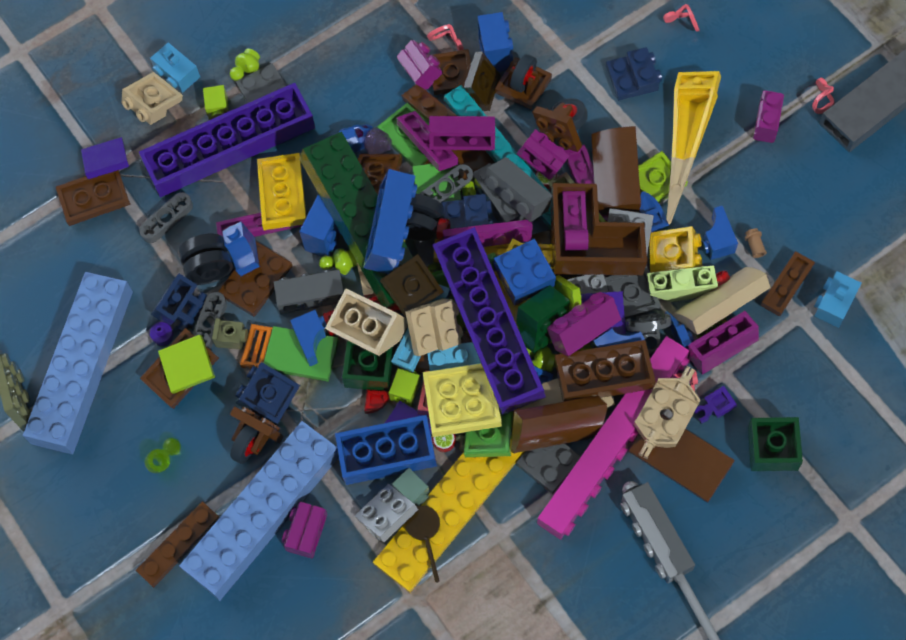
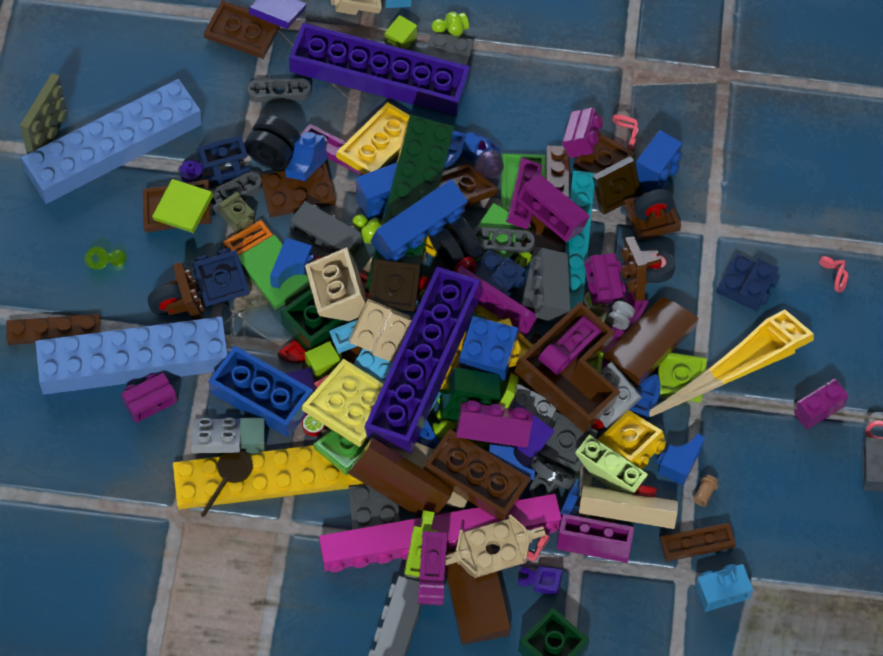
camera: 35 degrees right, 5 degrees down
(580, 170) = (620, 316): none -> light grey wheel
(619, 458) = (414, 553): none -> lime plate
(645, 468) = (432, 568): none -> magenta plate

